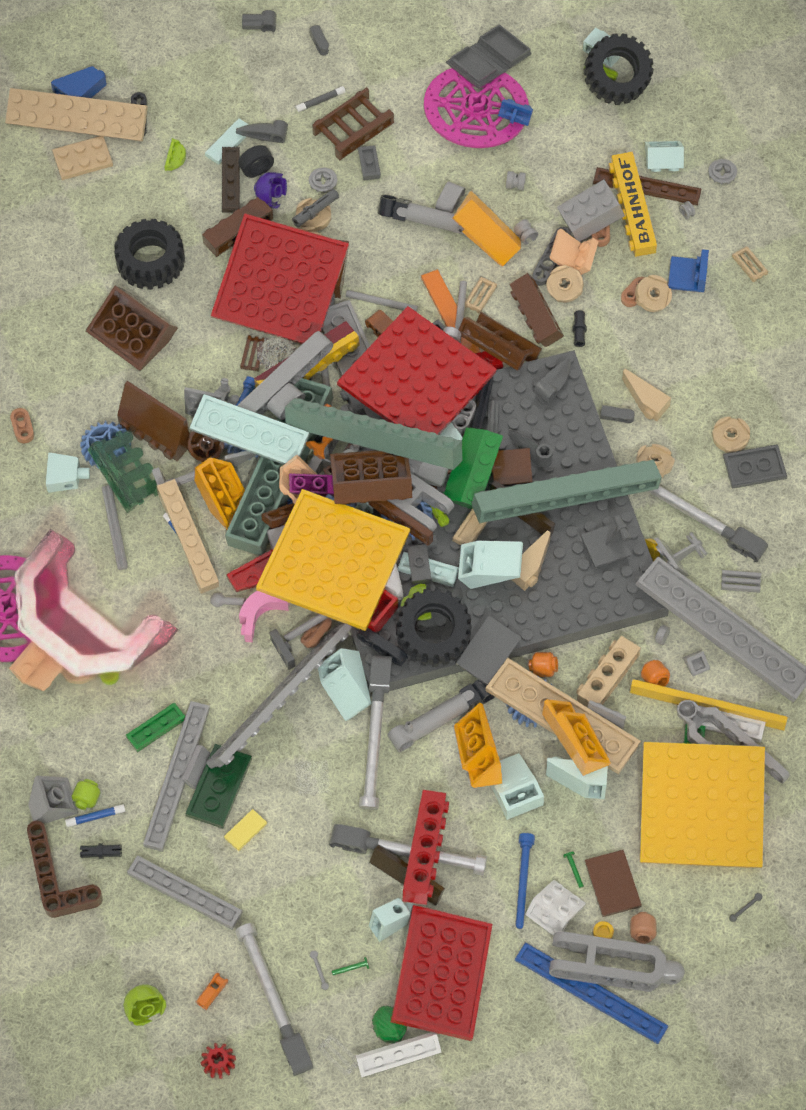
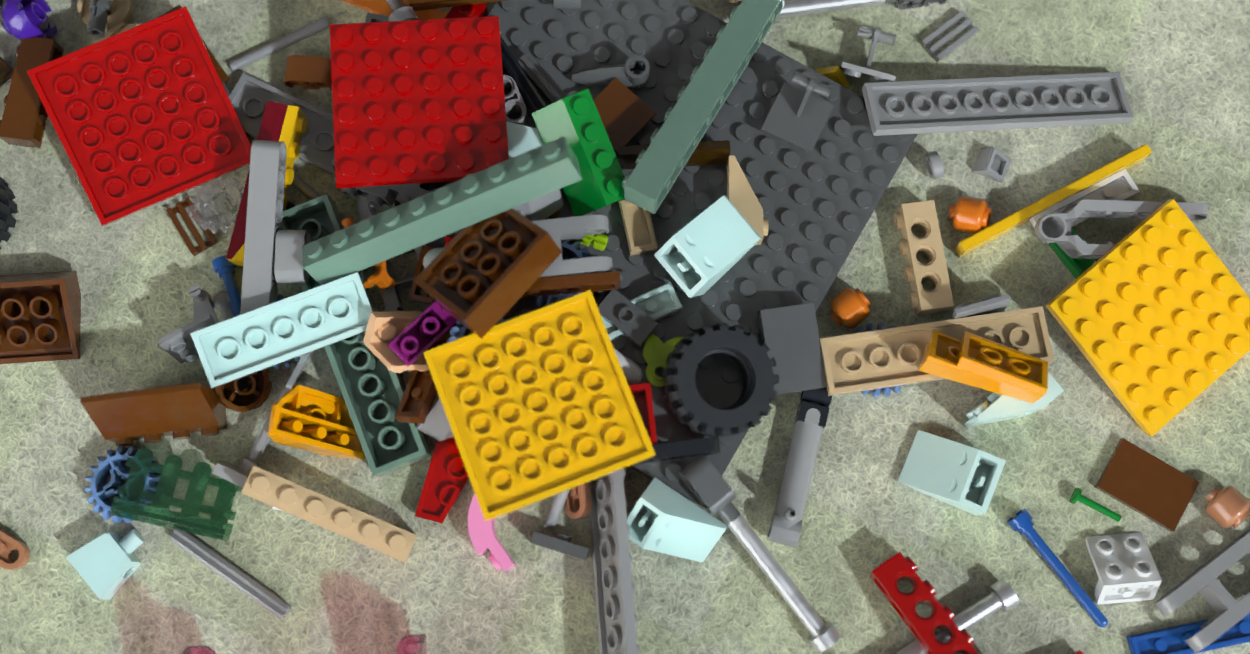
camera: 45 degrees left, 15 degrees up
(219, 600) = (431, 550): light grey bar -> none
(478, 748) = (882, 468): light orange slope -> none
(603, 929) = (1189, 547): yellow tile -> none

